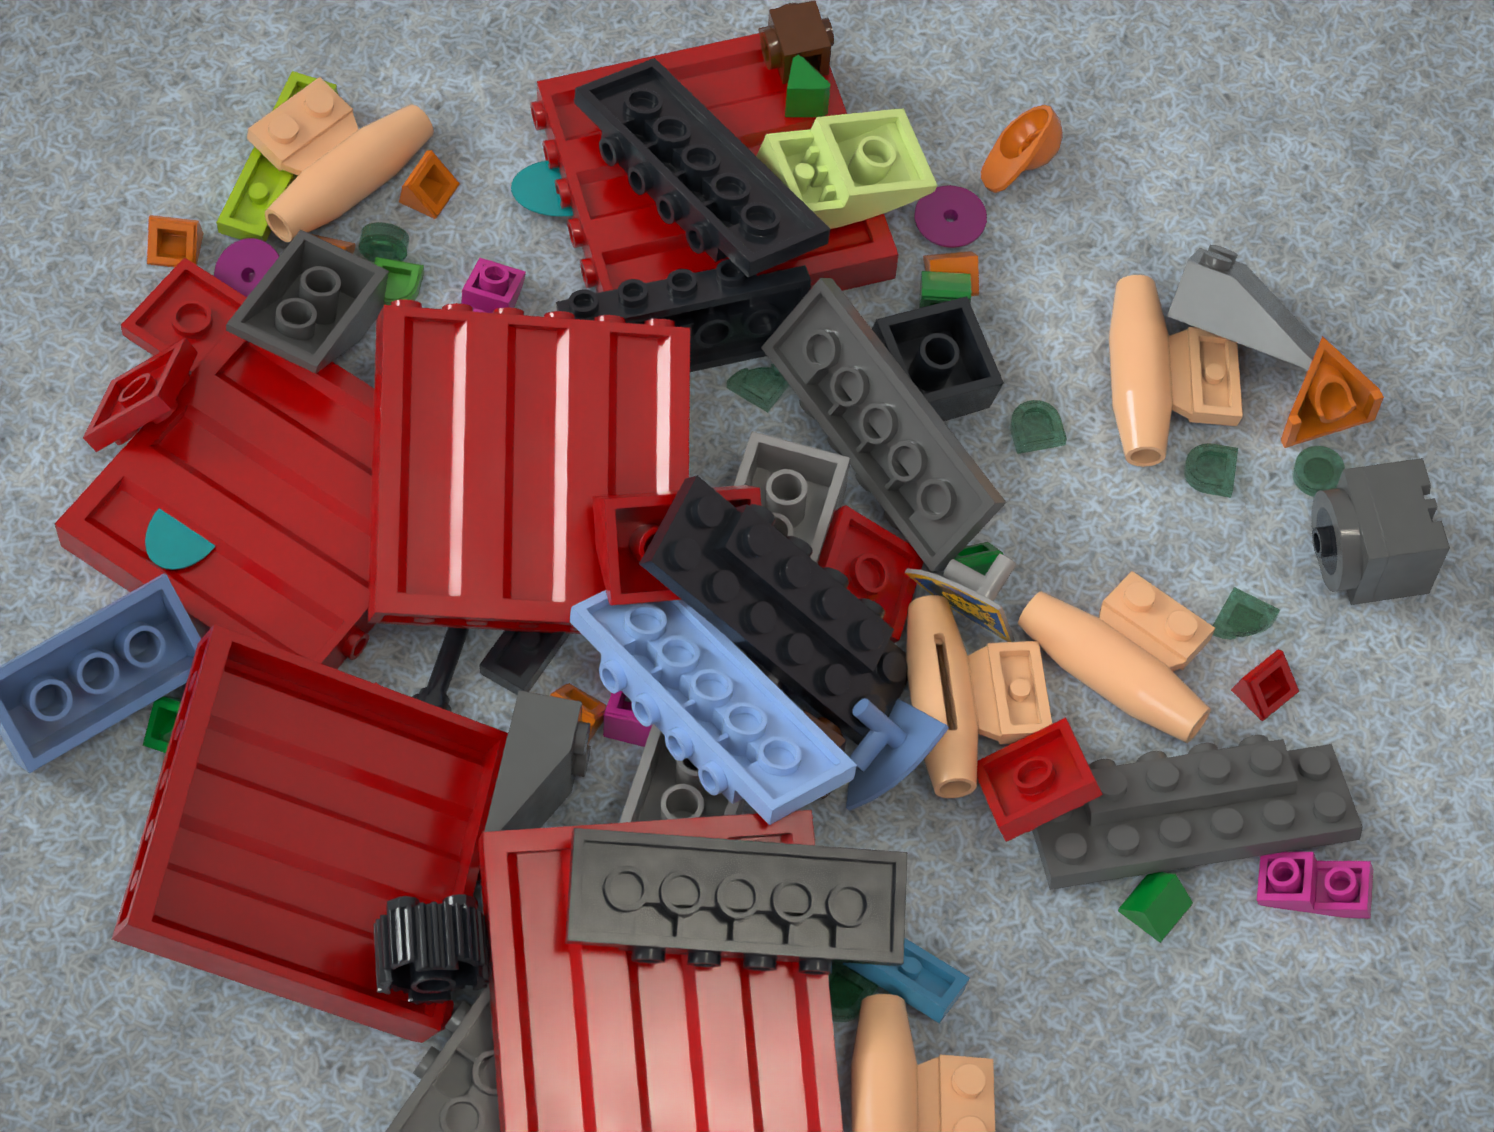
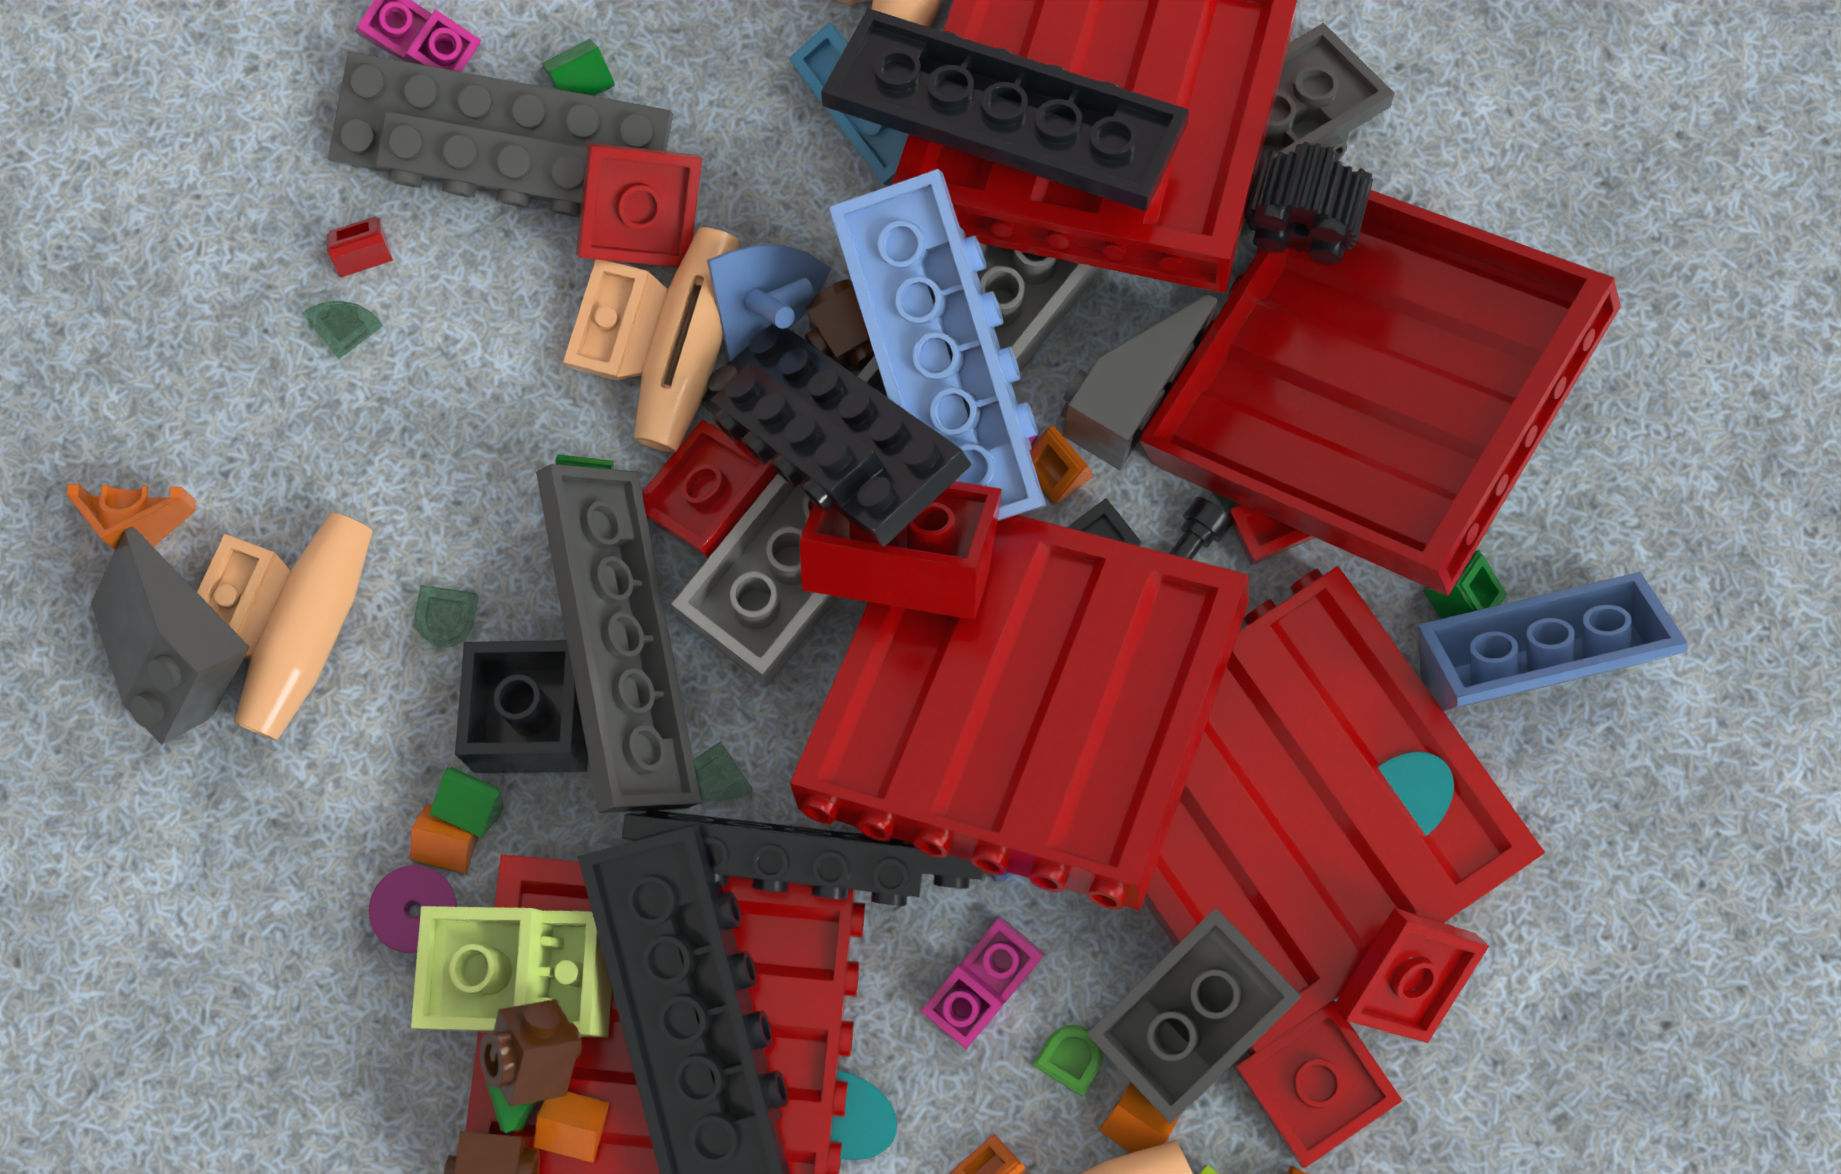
camera: 155 degrees left, 15 degrees up
(245, 264) = (1234, 1126): magenta piece -> none
(383, 241) = (1069, 1105): clear green tile -> none
(756, 97) = (571, 1126): none -> orange slope
(802, 97) = (530, 1052): none -> reddish brown brick
(972, 592) = (611, 420): shield -> none
(1022, 146) = (307, 949): orange cap -> none
(1128, 651) = (483, 319): light nougat plate -> none
(1211, 469) = (285, 499): clear green tile -> none
(1317, 469) = (177, 454): clear green tile -> none
(1379, 532) = (161, 332): dark grey piece -> none

